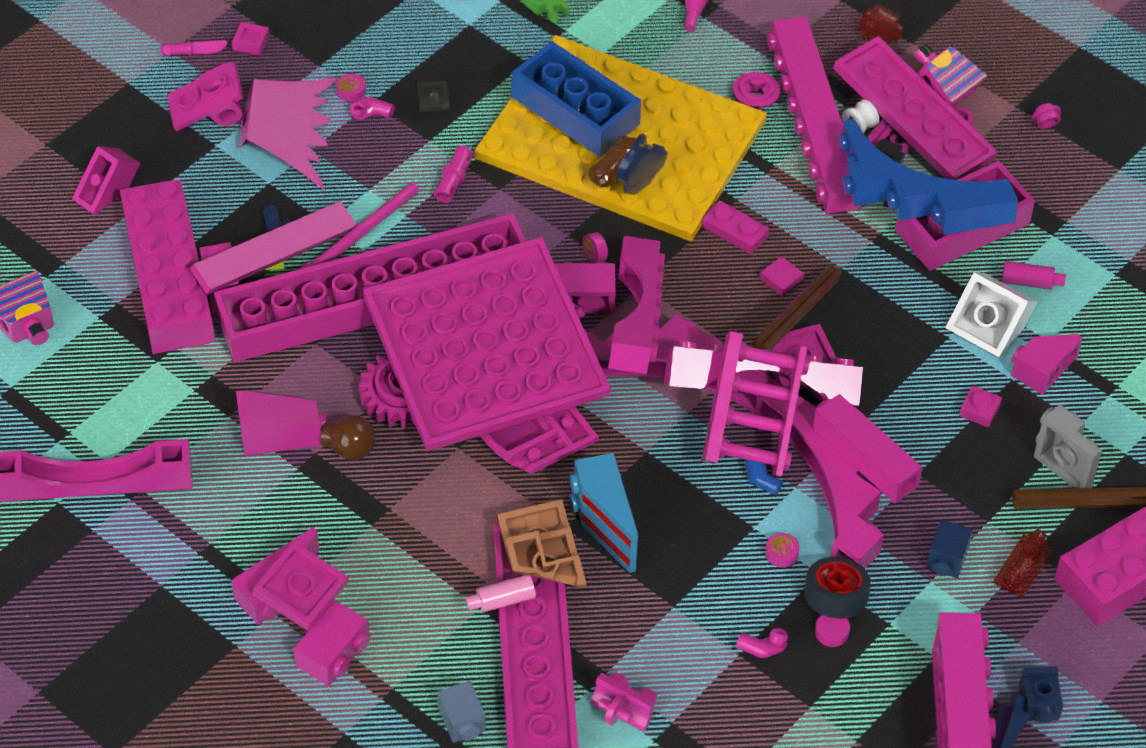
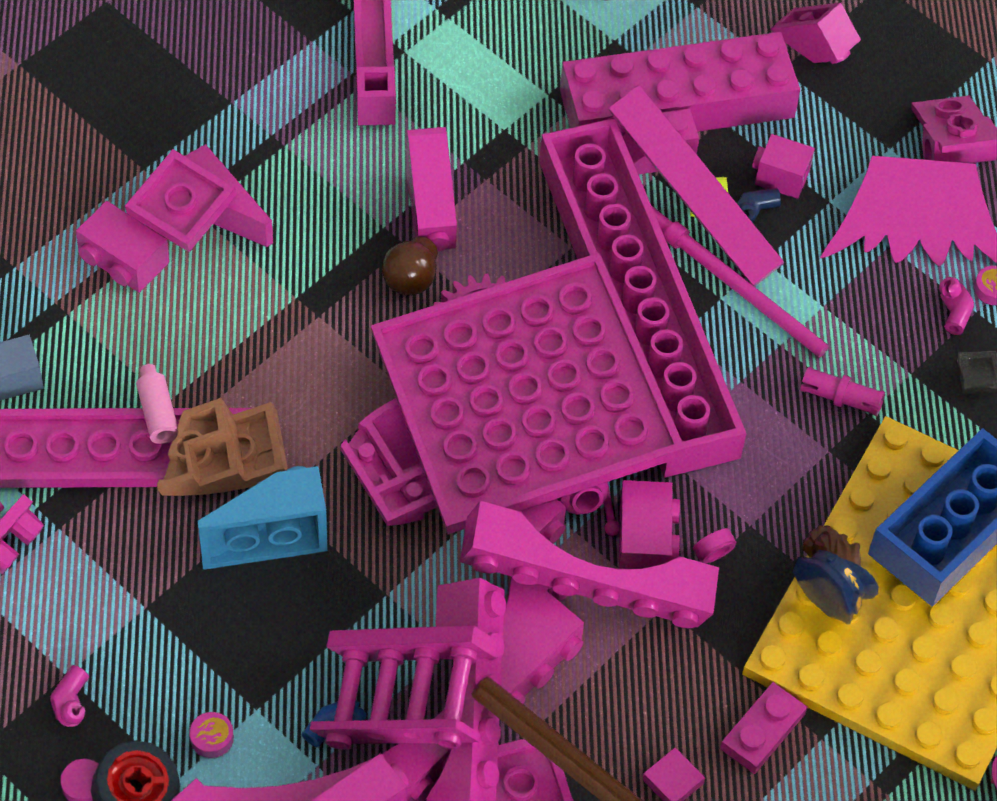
camera: 90 degrees right, 5 degrees up
(243, 201) = (783, 165): none -> dark pink brick

